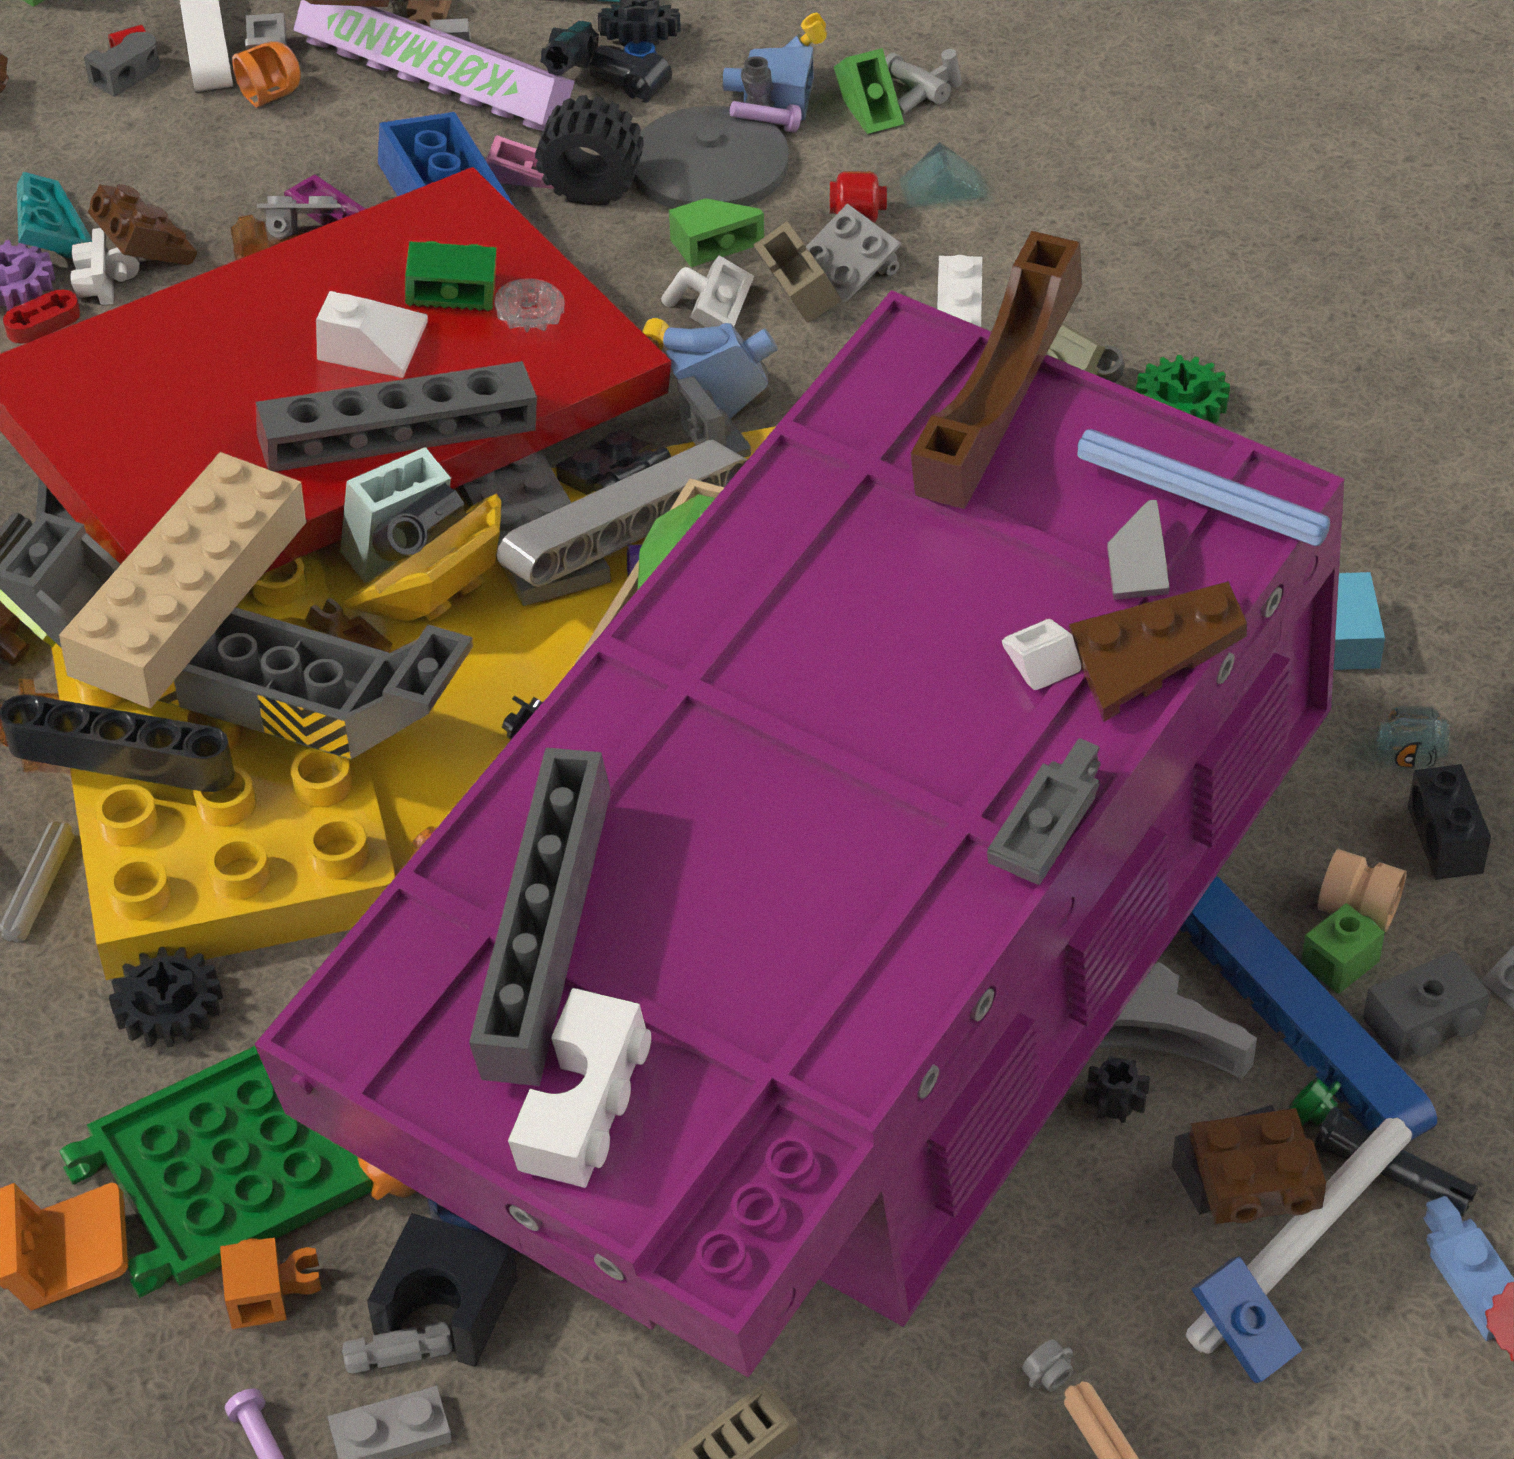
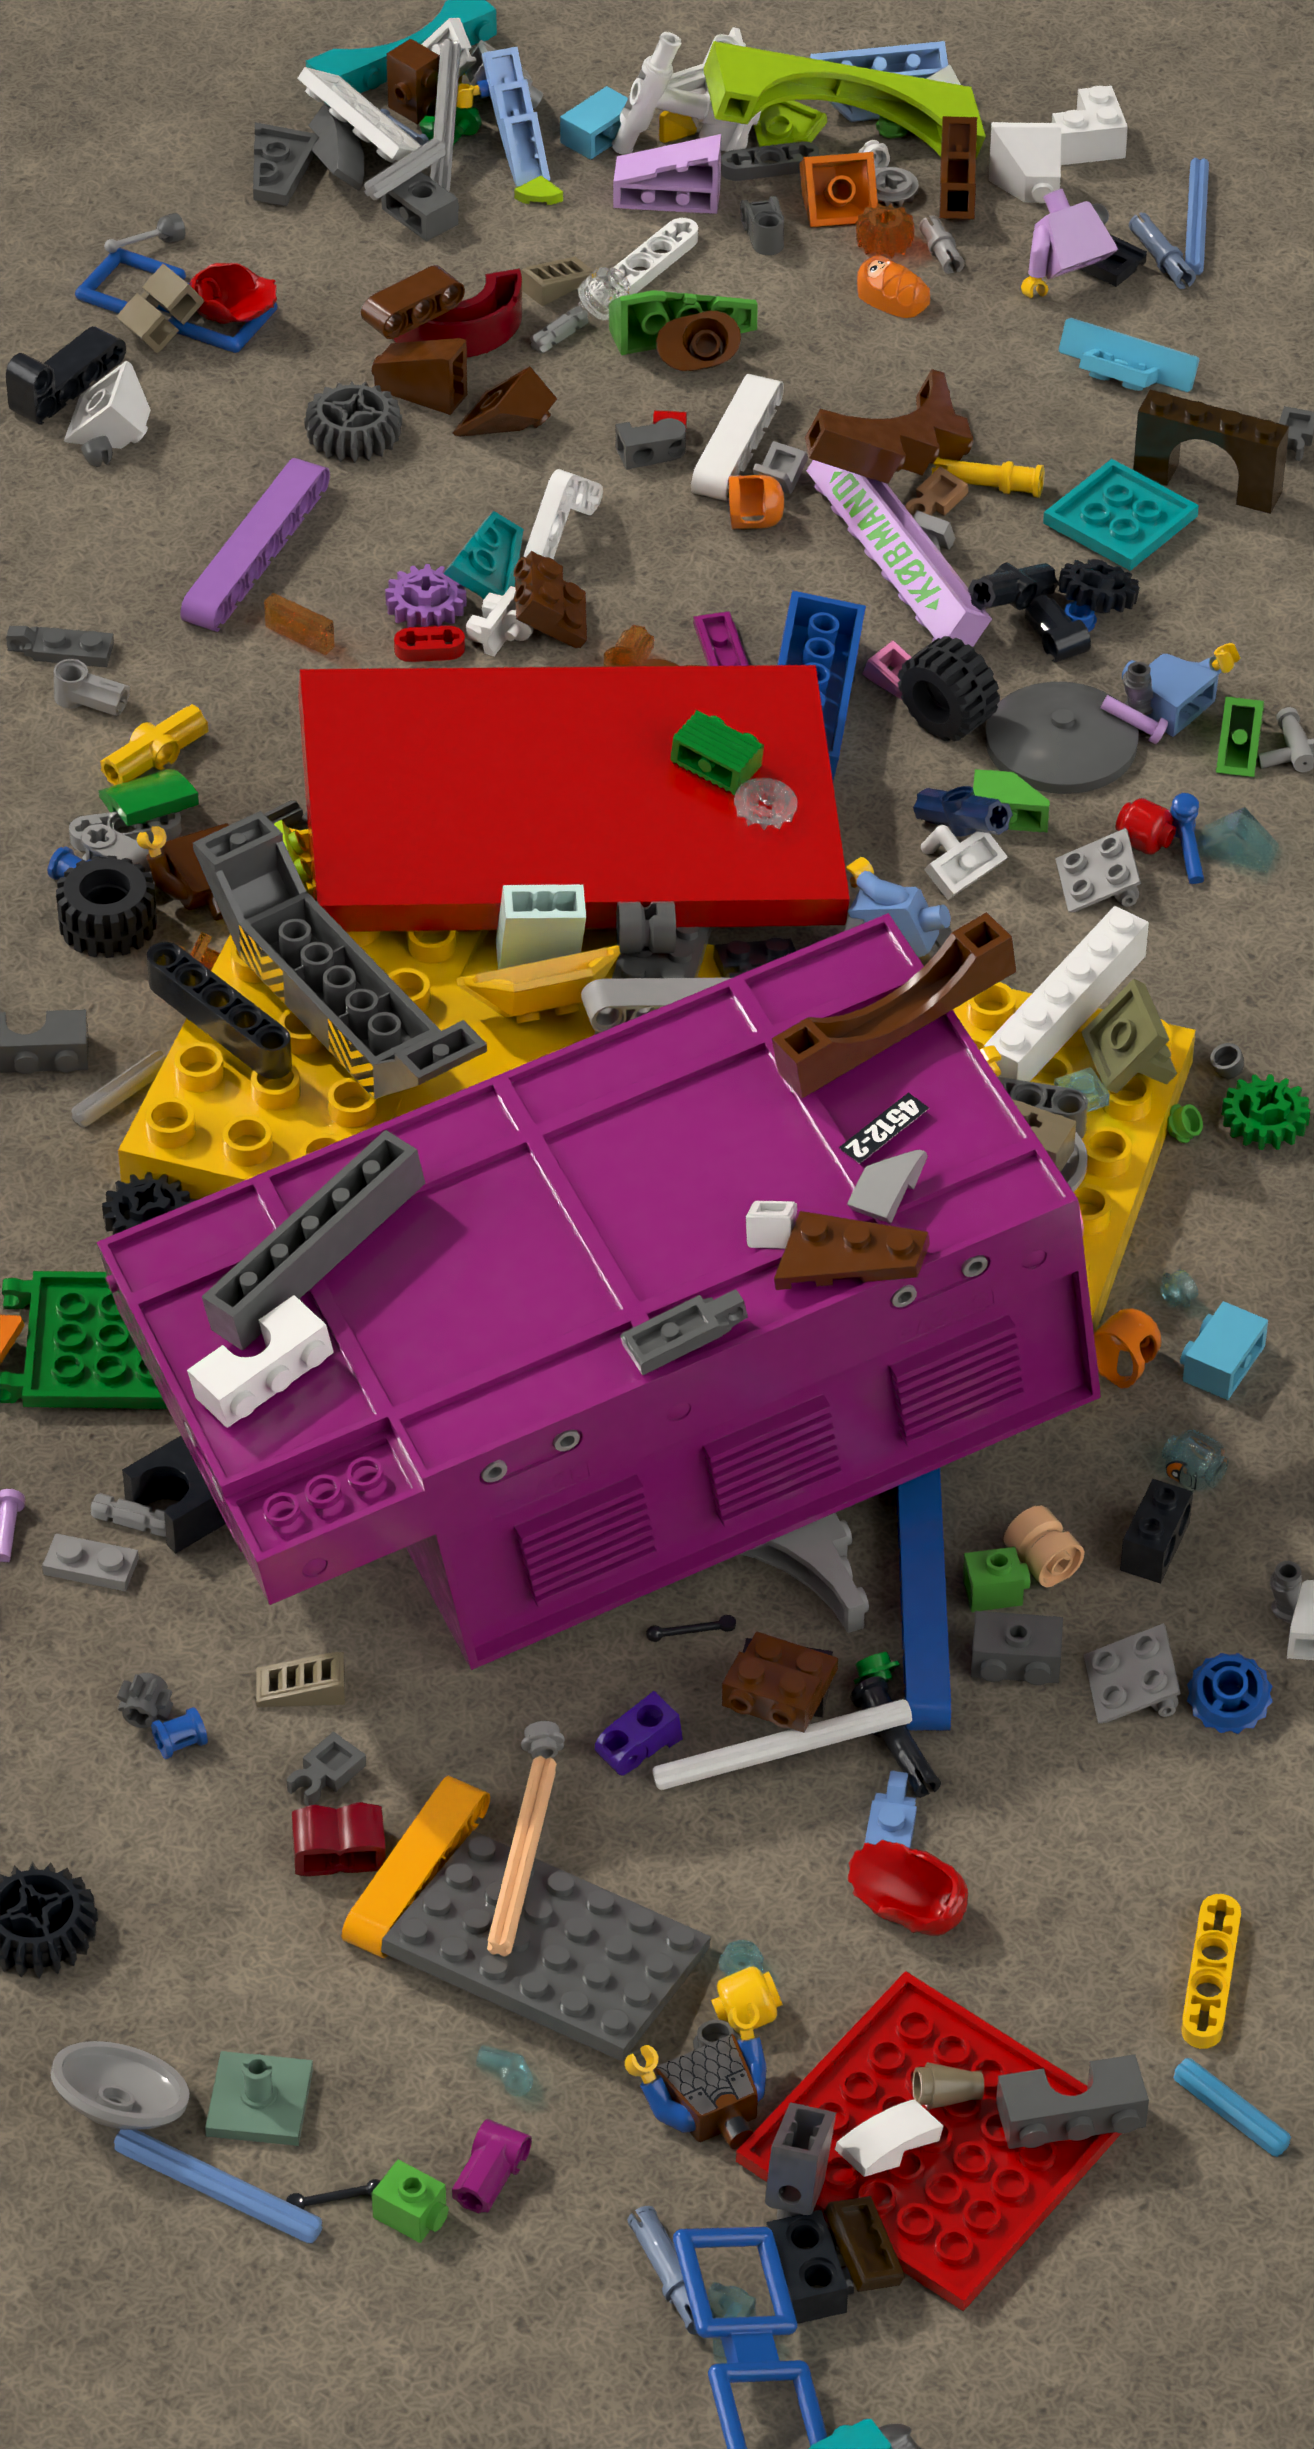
camera: 30 degrees right, 0 degrees up
(92, 134) = (562, 493): none -> white beam
(183, 580) = (331, 907): tan brick -> none
(258, 1281) = (73, 1426): orange brick -> none
(283, 212) = (667, 641): light grey hinge -> none
(335, 623) = (441, 1005): reddish brown plate -> none
(367, 334) = (617, 771): white slope -> none
(395, 416) = (587, 850): dark grey brick -> none
(419, 522) = (544, 941): black piece -> none
(501, 468) = (646, 927): none -> dark grey wheel
(691, 248) = (963, 811): none -> dark blue piece
(797, 272) = (1037, 869): dark tan piece -> none
(885, 166) = (1184, 812): none -> blue piece
(1074, 503) = (884, 1128): none -> black sticker
(1117, 1088) = (743, 1591): black gear -> none
(1117, 1132) = (726, 1623): none -> black hinge
(1145, 1303) = (639, 1734): none -> dark purple leg
(1204, 487) = (970, 1158): medium blue axle -> none
(1246, 1319) = (694, 1776): blue plate -> none

